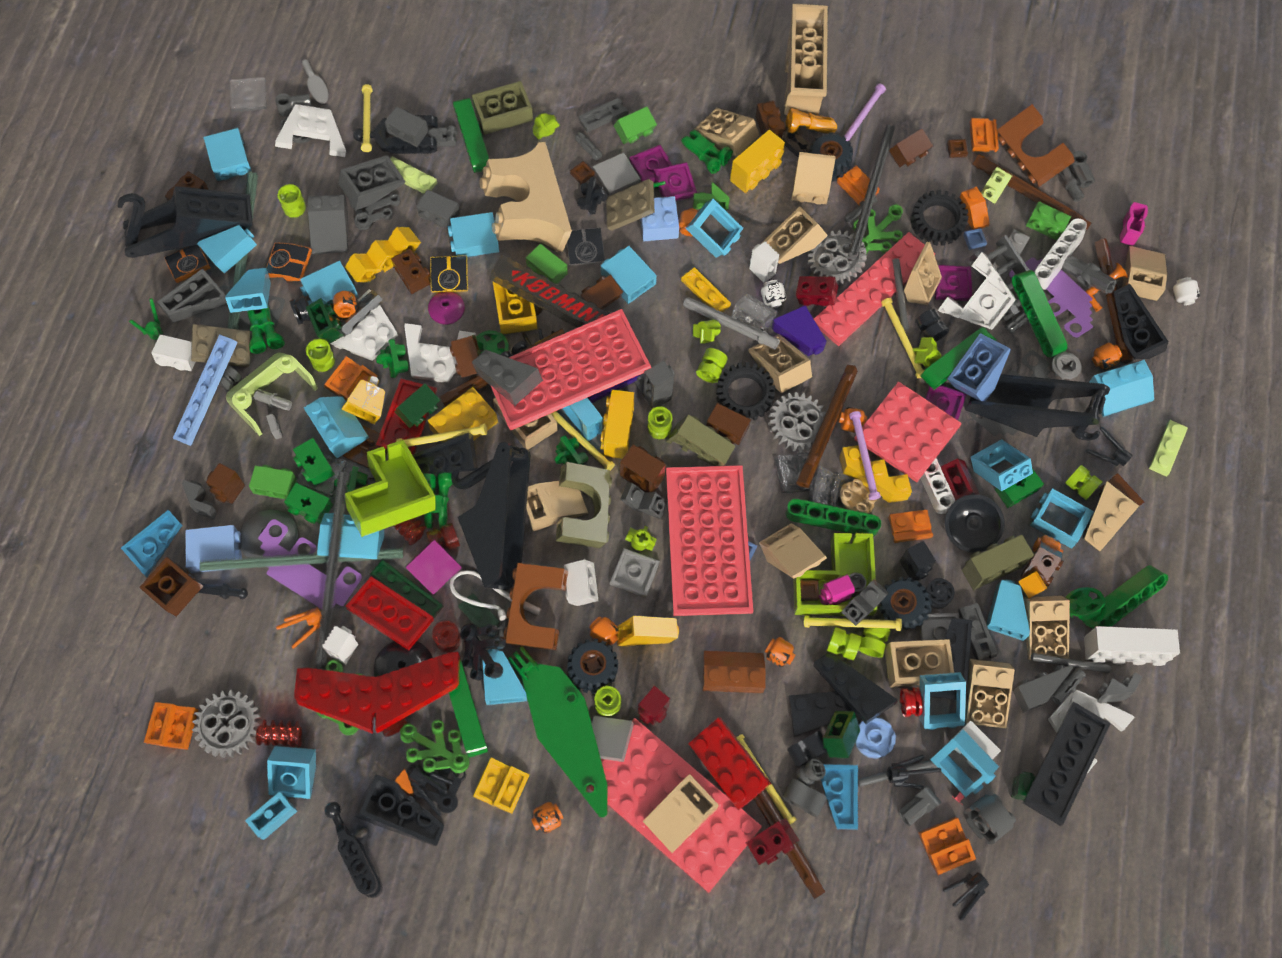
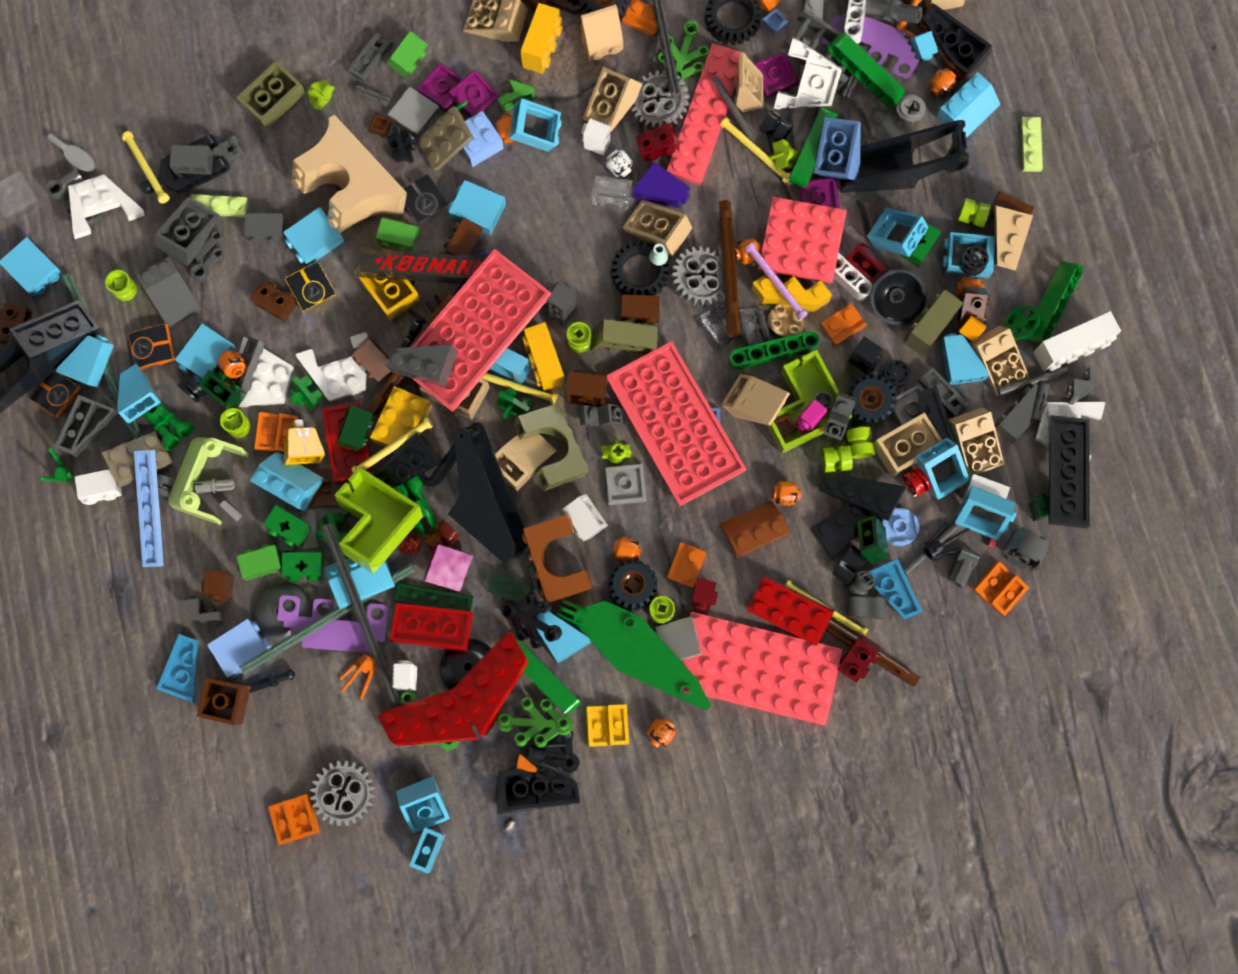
camera: 25 degrees left, 10 degrees up
(279, 734) = (394, 778): clear red piece -> none
(345, 840) = (477, 819): black piece -> none
(378, 258) = (236, 297): yellow brick -> none
(446, 314) = (328, 327): magenta dish -> none
(446, 636) = (492, 622): clear red wheel -> none
(471, 134) = (255, 136): green beam -> none
(491, 345) = (387, 339): green piece -> none
(501, 612) = (529, 578): white piece -> none
(647, 630) = (664, 531): yellow slope -> none
(653, 672) = (686, 565): none -> orange plate
(681, 813) = (772, 673): tan slope -> none
(703, 148) = (482, 46): green piece -> none
(705, 290) = (555, 189): yellow tile -> none
(706, 330) = (577, 228): lime piece -> none
(711, 365) = (598, 260): lime wheel -> none
(732, 323) = (595, 210): light grey axle -> none
(768, 383) = (658, 255): none -> light aqua cone
(847, 623) = (830, 440): light yellow bar -> none
(975, 884) = (1039, 610): black plant -> none
(1062, 523) = (974, 261): none -> black wheel
(1103, 317) = (923, 45): none -> medium azure brick
(1121, 455) = (994, 171): black plant -> none

